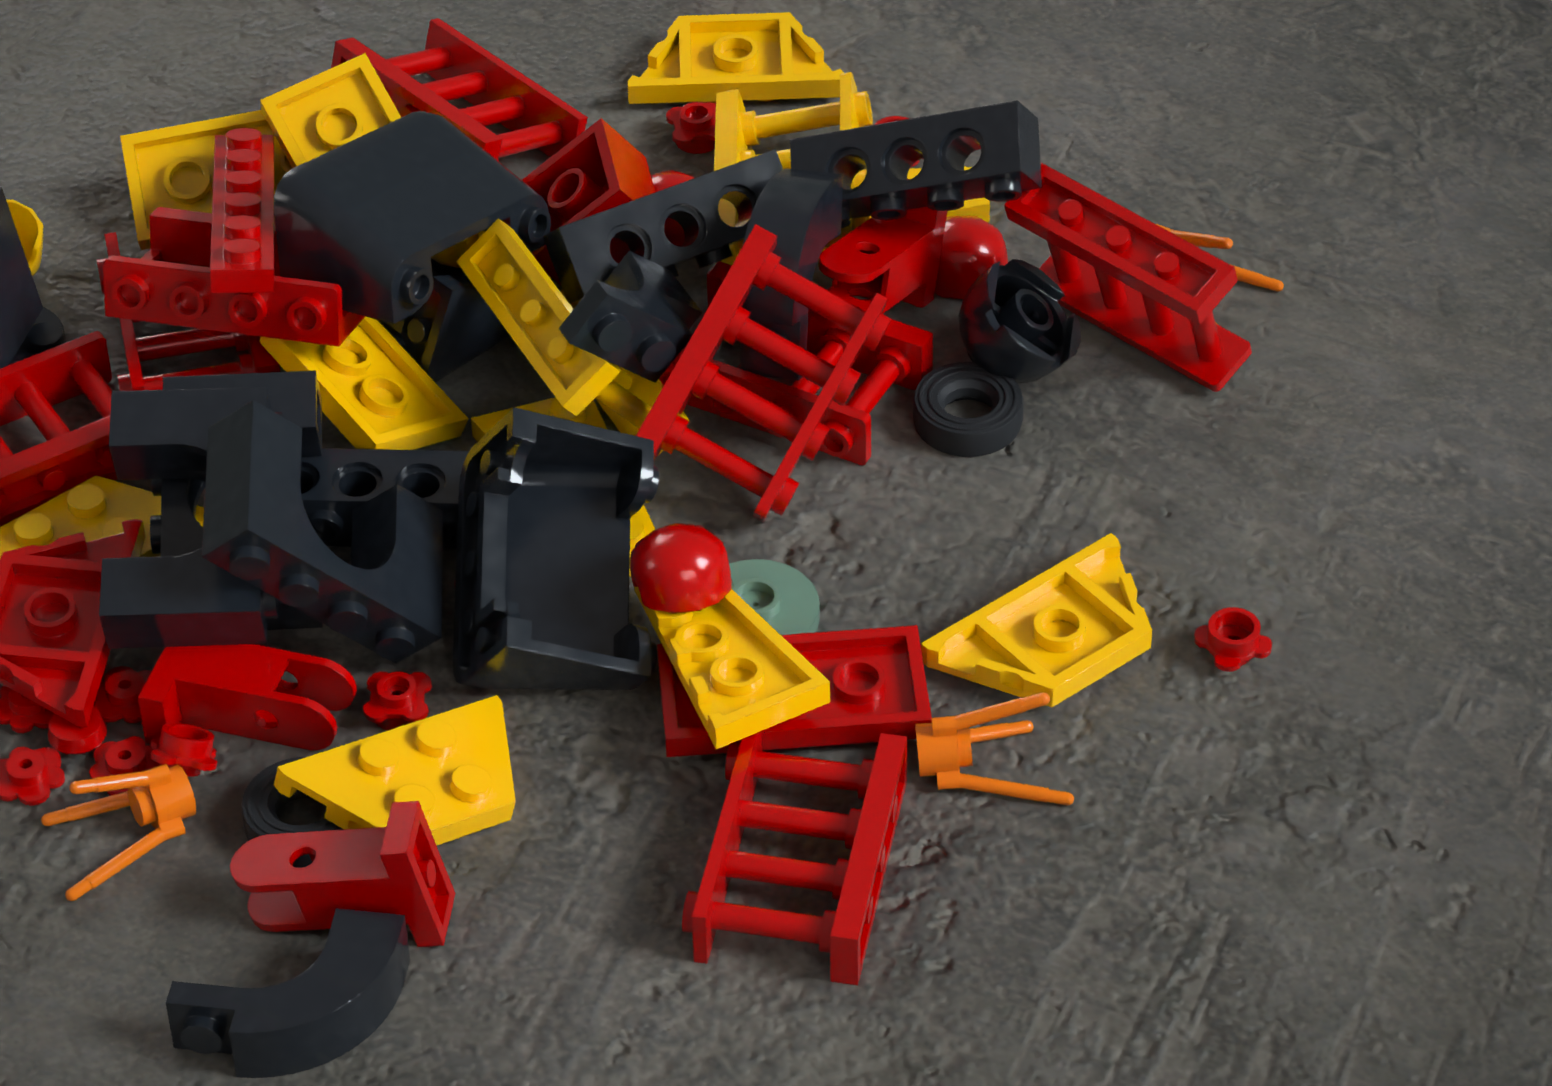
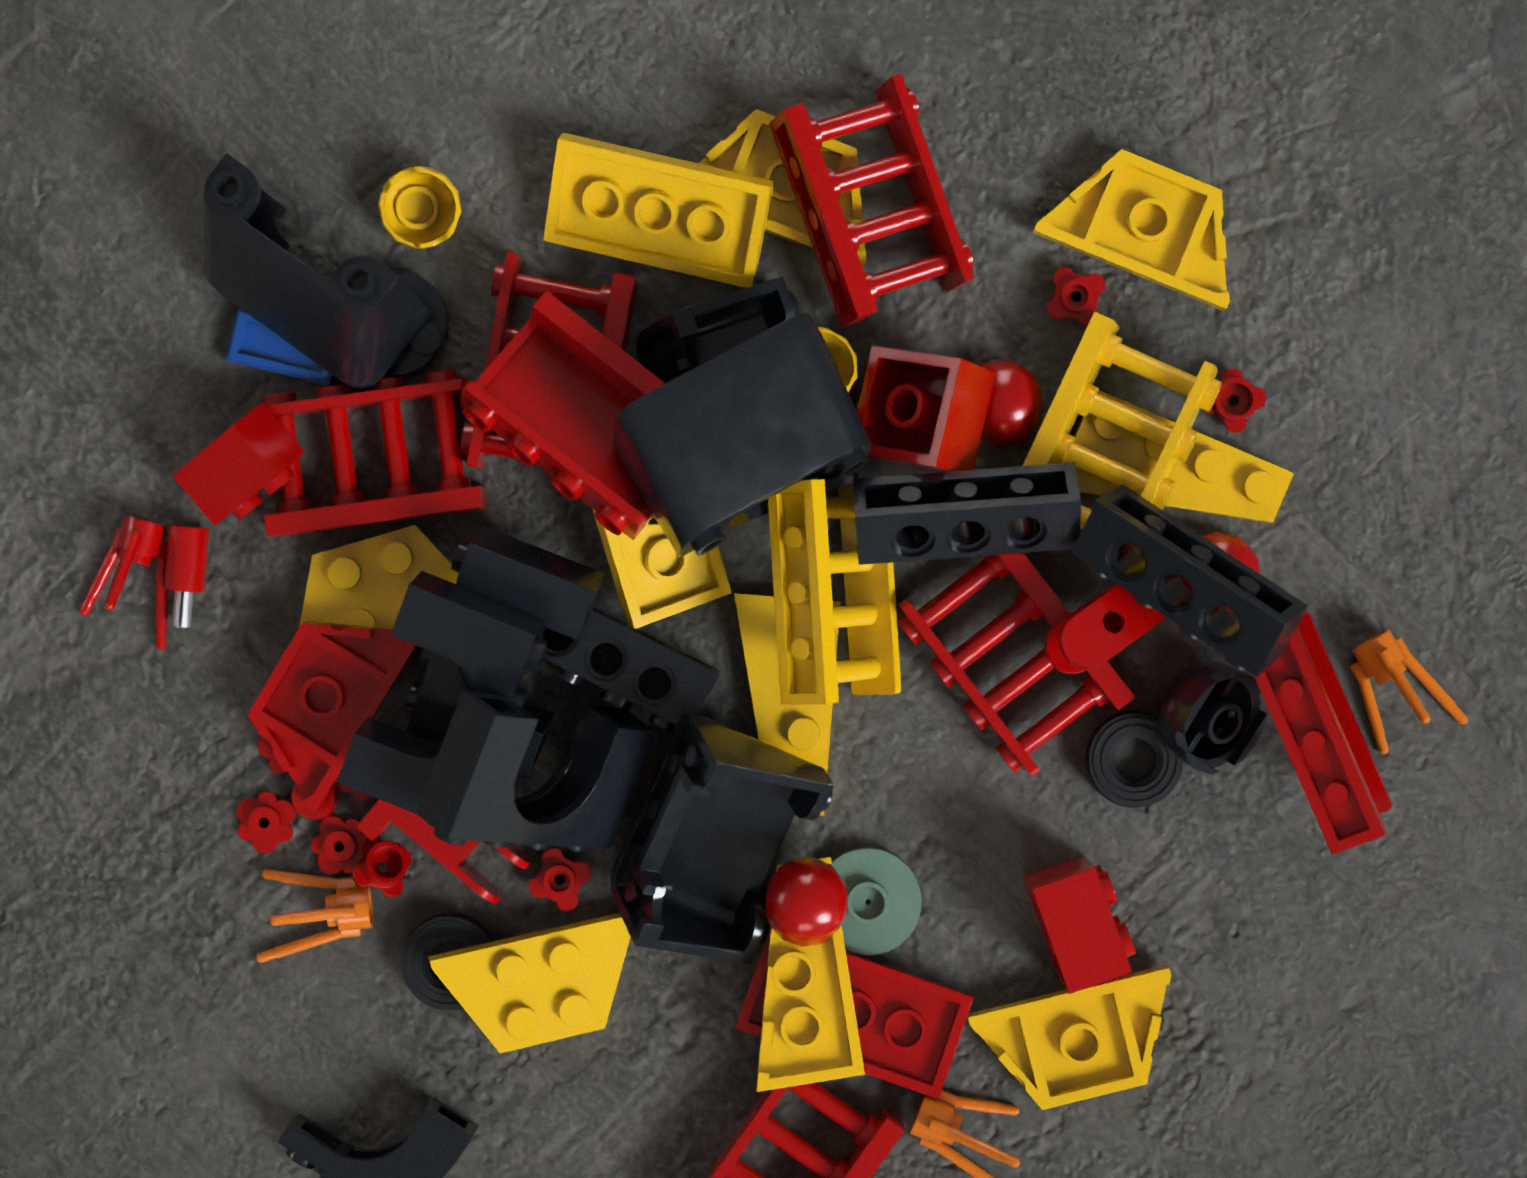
camera: 25 degrees right, 45 degrees up
(243, 213) = (608, 352): red plate -> none
(328, 110) = (743, 233): yellow plate -> none
(351, 869) = (454, 1074): red piece -> none
(634, 318) = (876, 661): black arch -> none
(730, 322) = (948, 690): red fence -> none
(805, 216) = (1038, 618): black arch -> none
(984, 508) = (1078, 923): none -> red brick
(1233, 638) = (1216, 1117): red plate -> none

